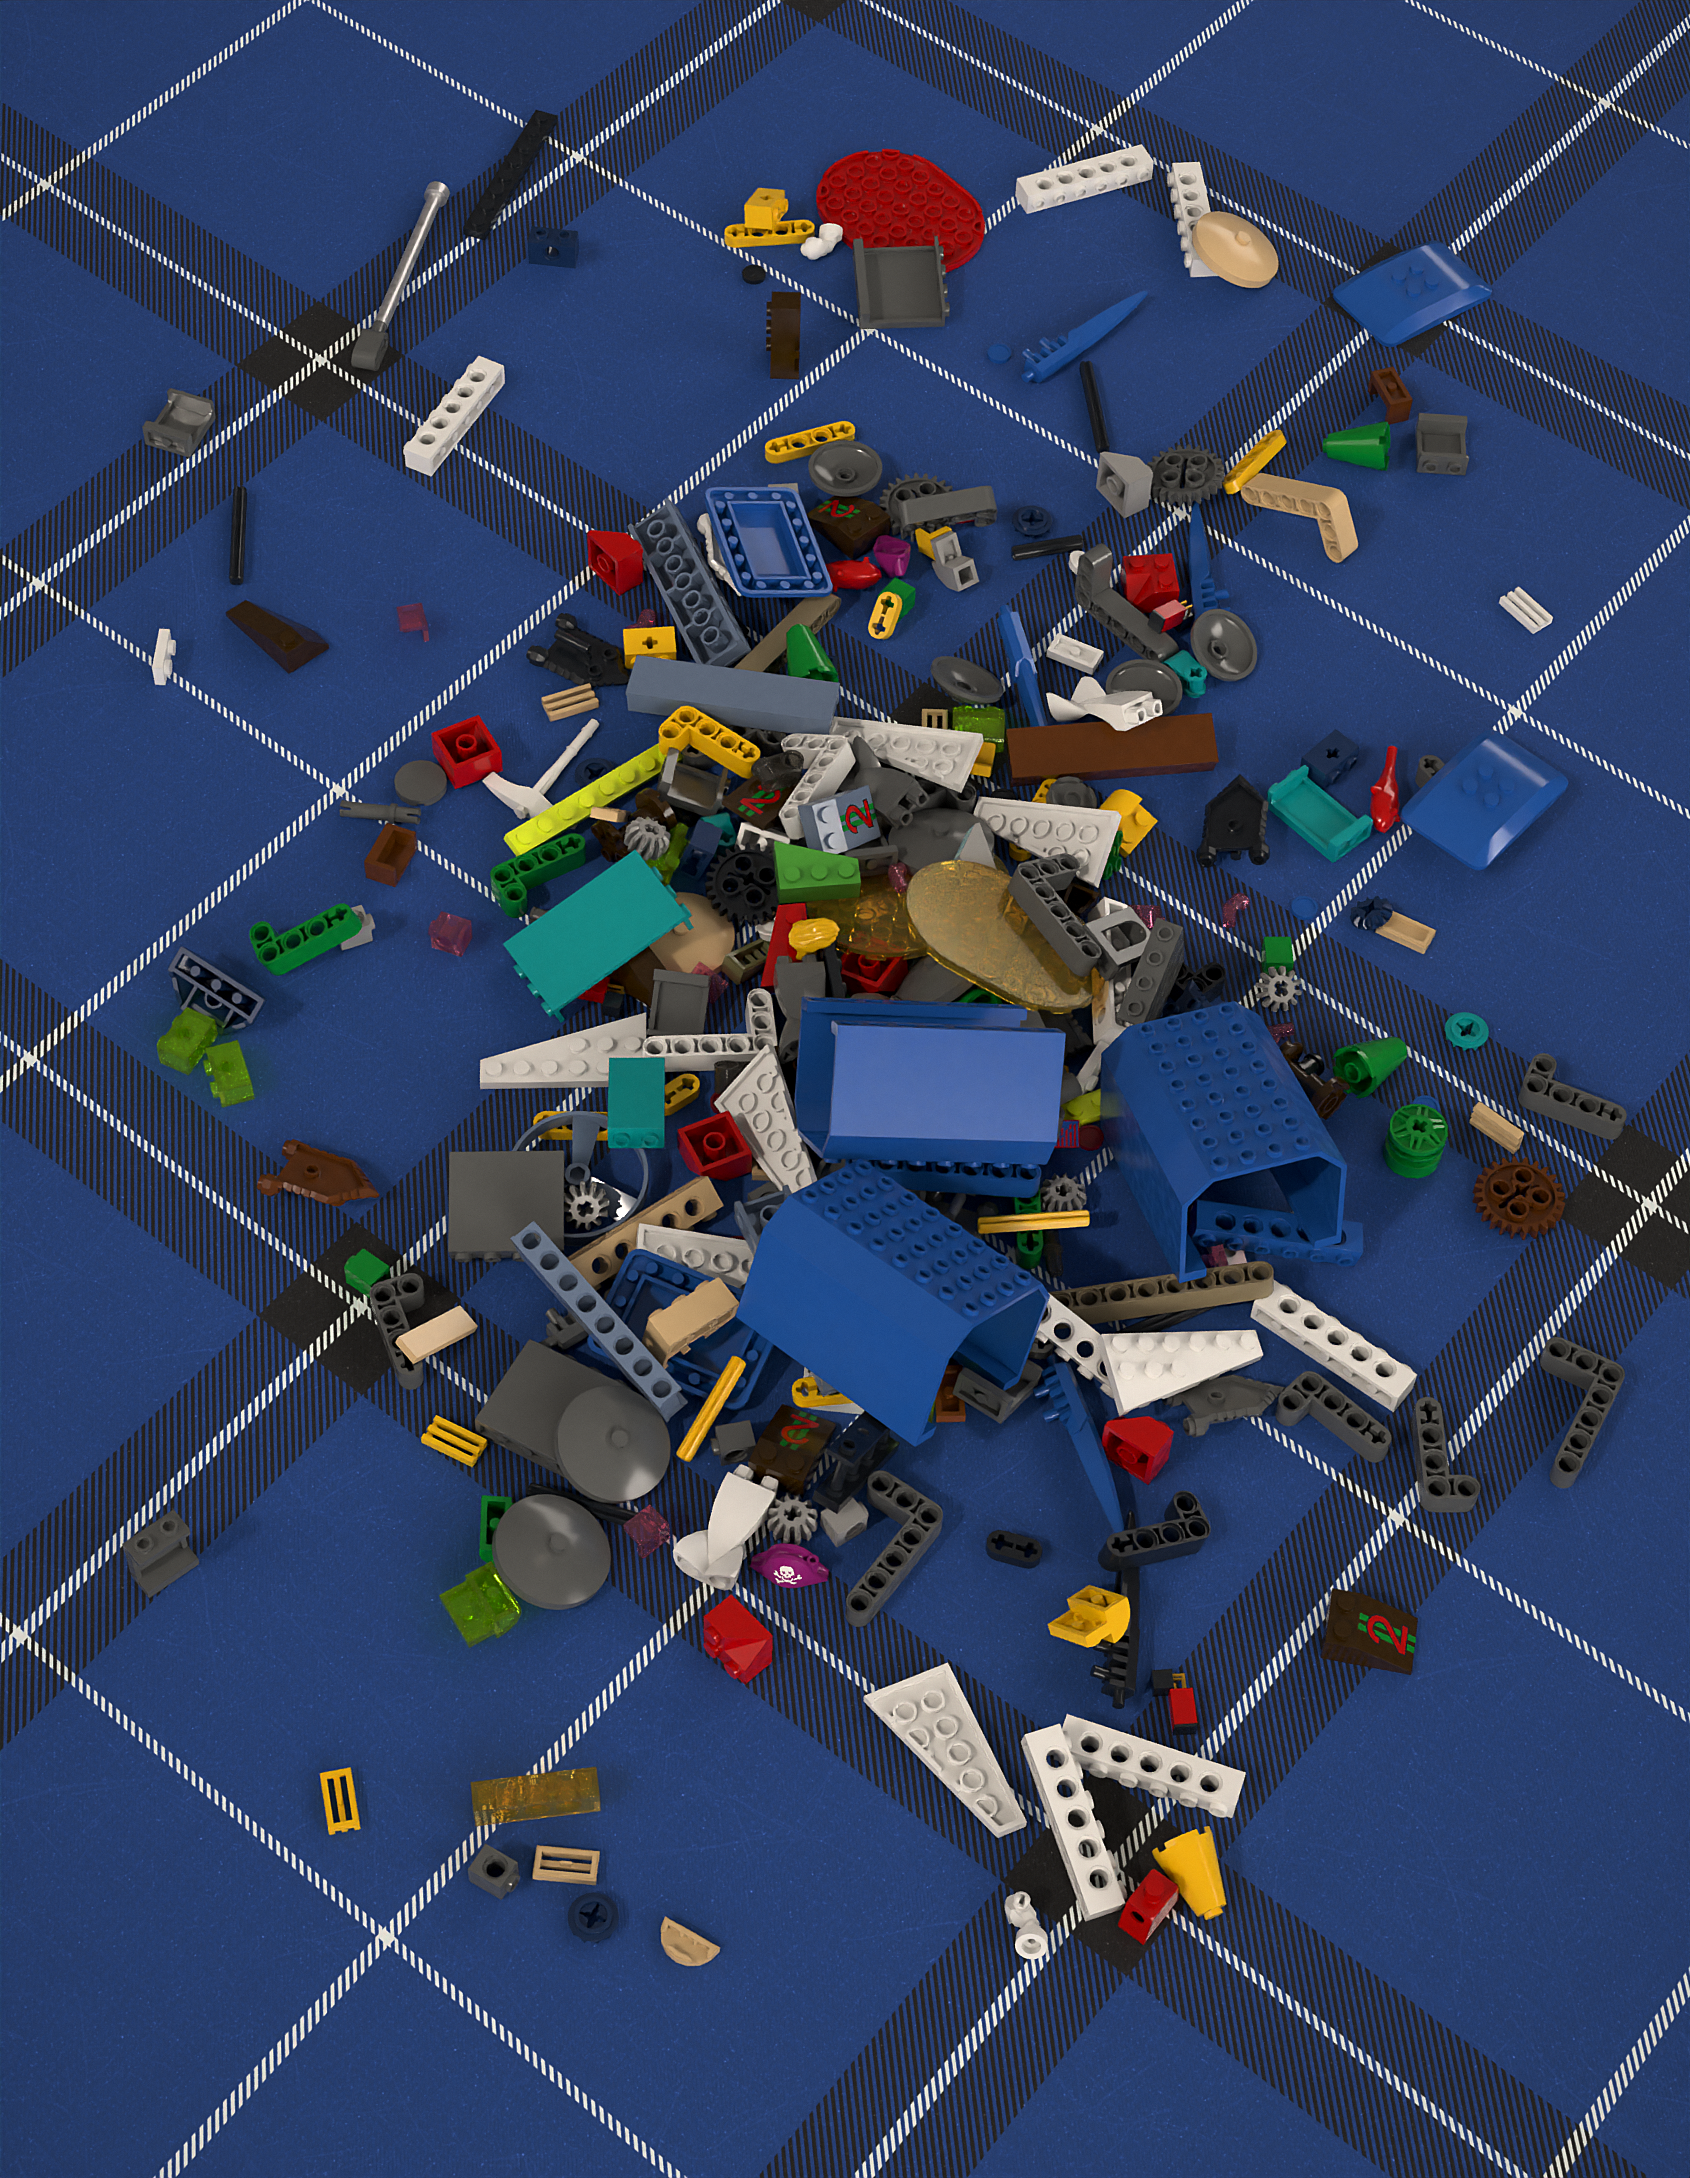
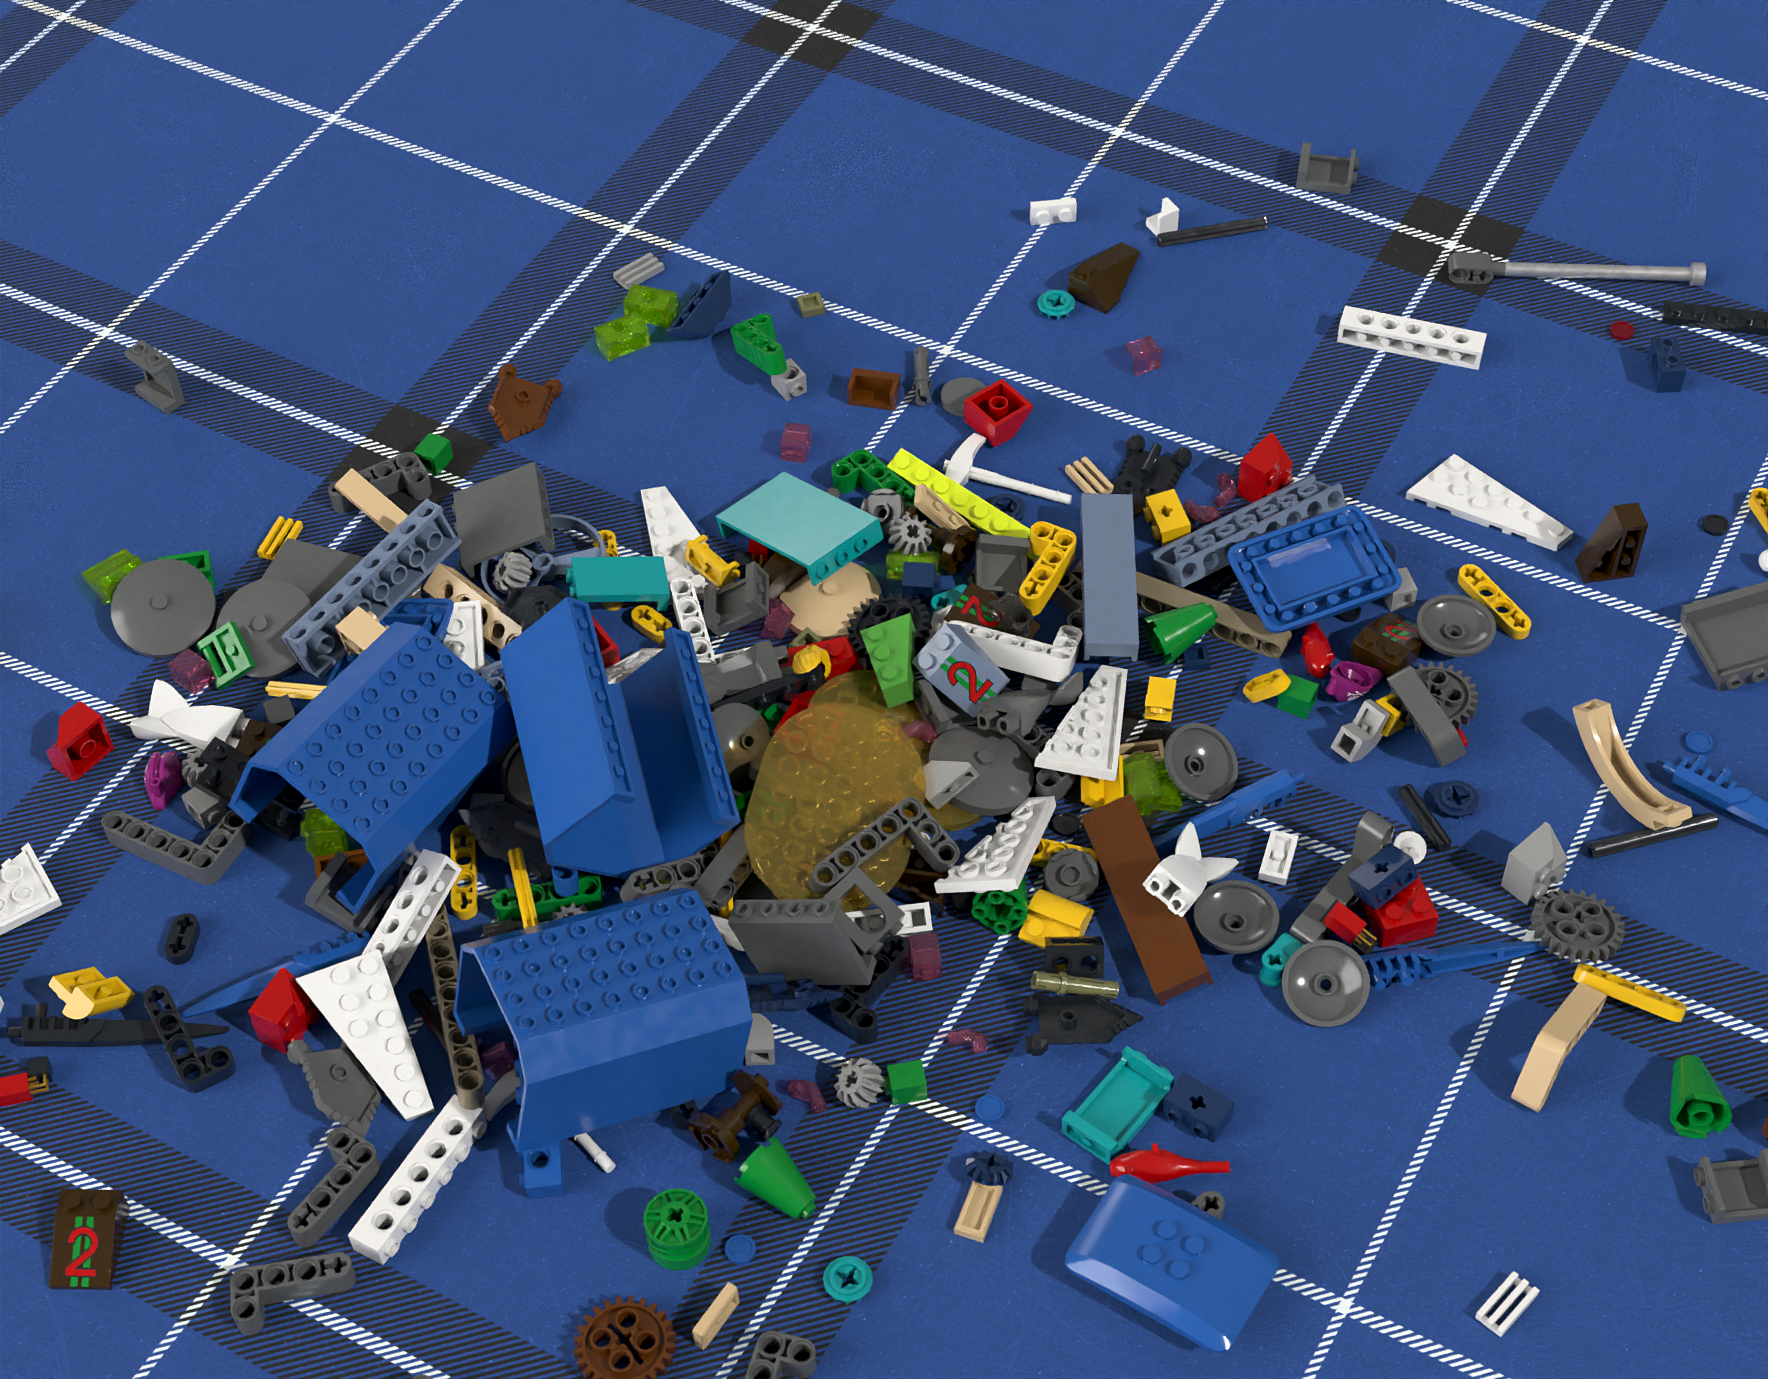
camera: 85 degrees right, 5 degrees down
(107, 1034) = (638, 271): none -> light grey tile
(208, 567) = (1165, 220): none -> white panel
(230, 896) = (811, 305): none -> olive tile
(305, 674) = (1053, 297): none -> teal gear
(487, 268) = (1622, 330): none -> dark red piece
(572, 858) = (882, 501): none -> dark grey plate
(617, 598) = (1227, 490): none -> clear pink arm
(618, 1025) = (709, 563): none -> yellow hinge
(642, 1476) = (232, 653): none -> green plate
(664, 1169) = (531, 603): none -> black shield
(680, 422) = (1486, 502): none -> white wing
(878, 699) = (1160, 699): none -> yellow brick
(1041, 406) = (1620, 773): none -> tan arch
(1138, 586) = (1383, 876): none -> dark blue brick
(1167, 812) = (1075, 950): none -> black brick
(1195, 810) = (1063, 983): none -> olive pin

